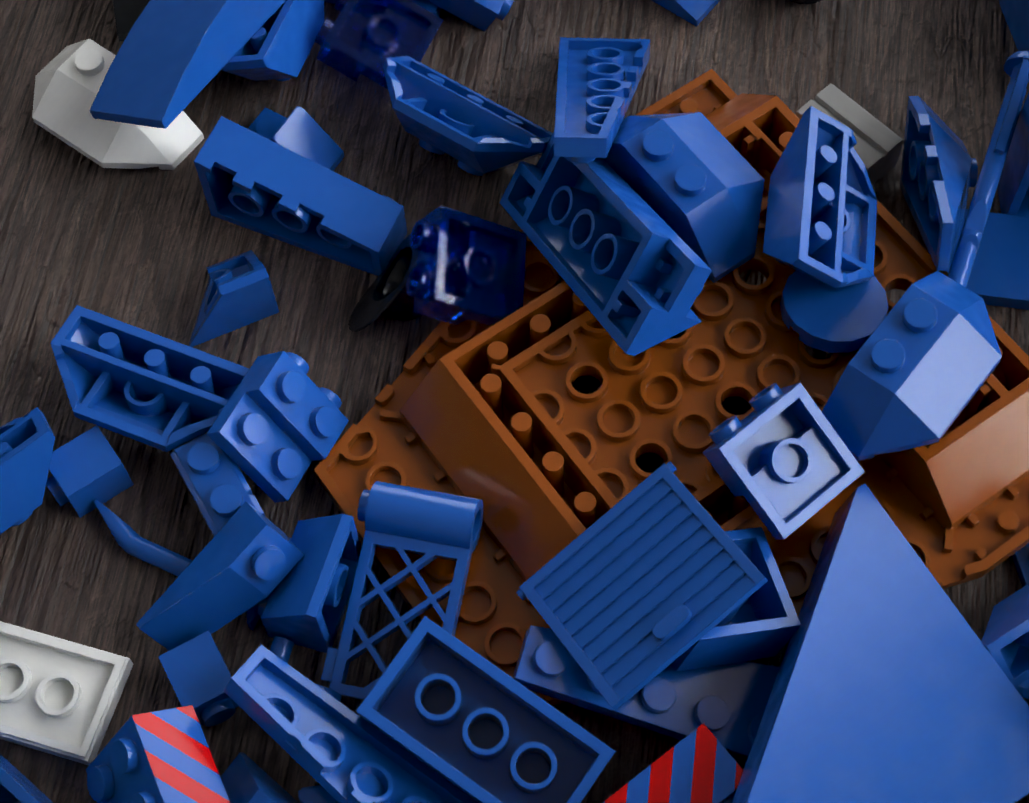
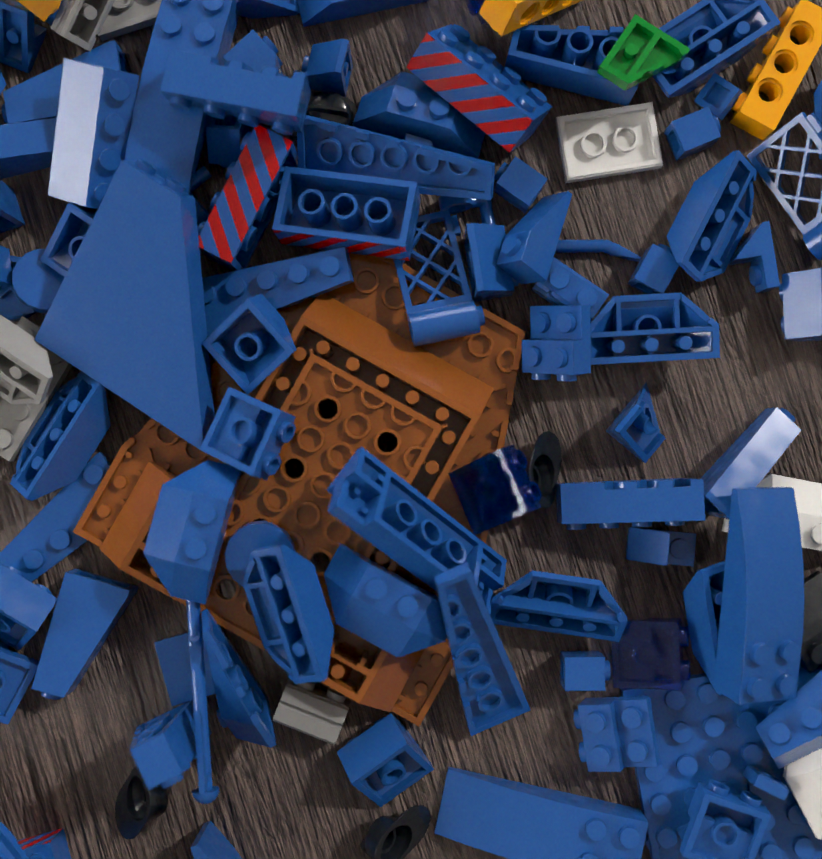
camera: 155 degrees right, 25 degrees up
(122, 185) = (748, 459): none -> slope
(470, 50) = (584, 670): none -> blue brick
(641, 585) = (294, 320): blue piece -> none
(776, 54) = (384, 760): none -> blue slope

